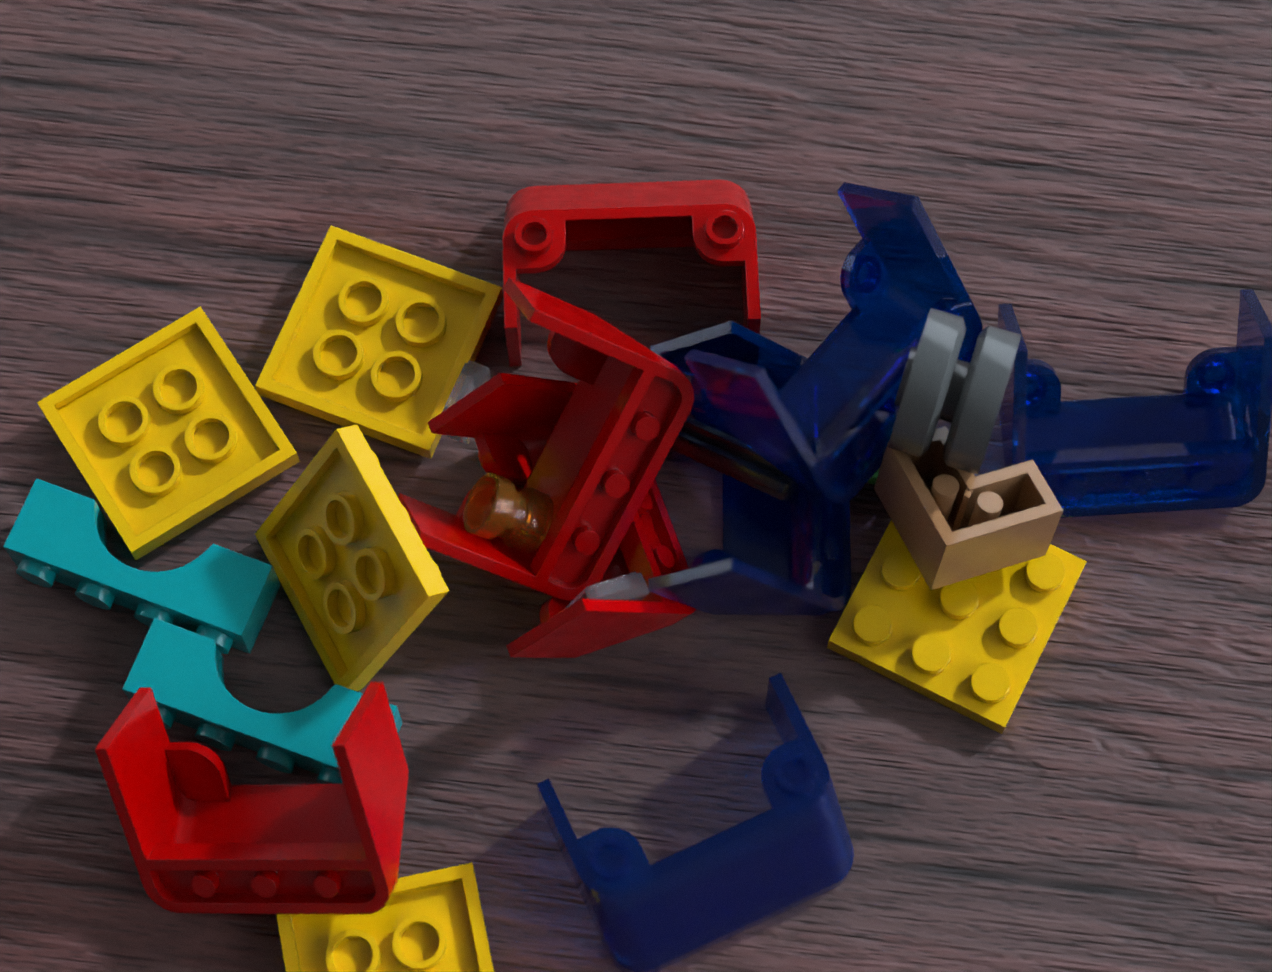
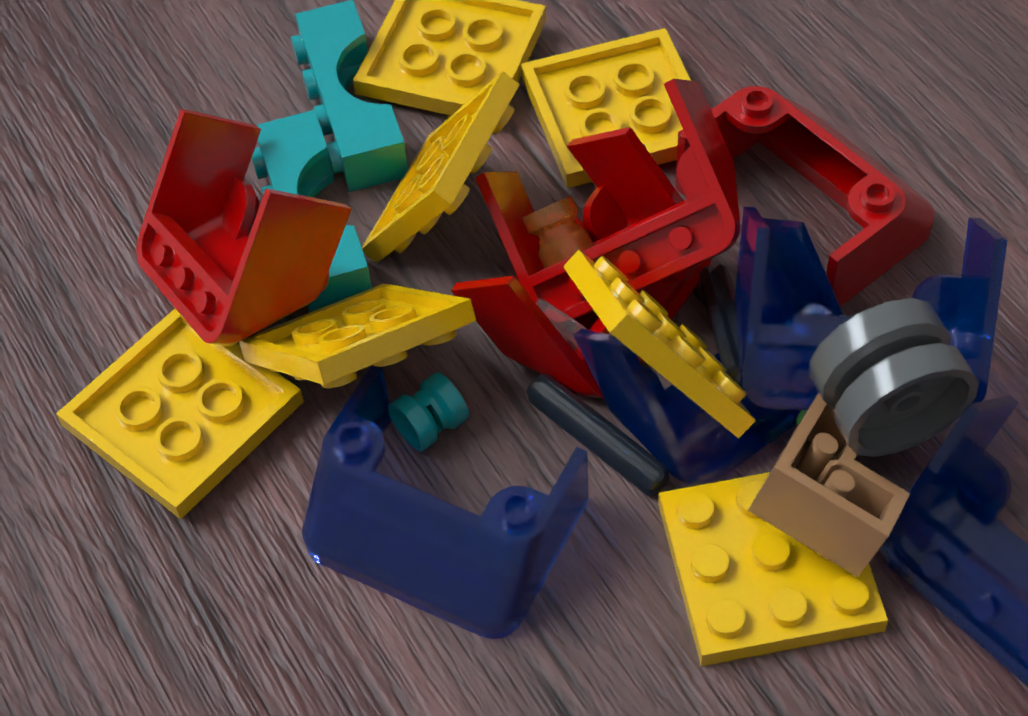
camera: 55 degrees right, 15 degrees down
(485, 770) = (358, 333): none -> yellow plate
(589, 767) = (428, 411): none -> teal wheel
(724, 643) = (598, 434): none -> black axle
(728, 530) = (656, 339): none -> yellow plate

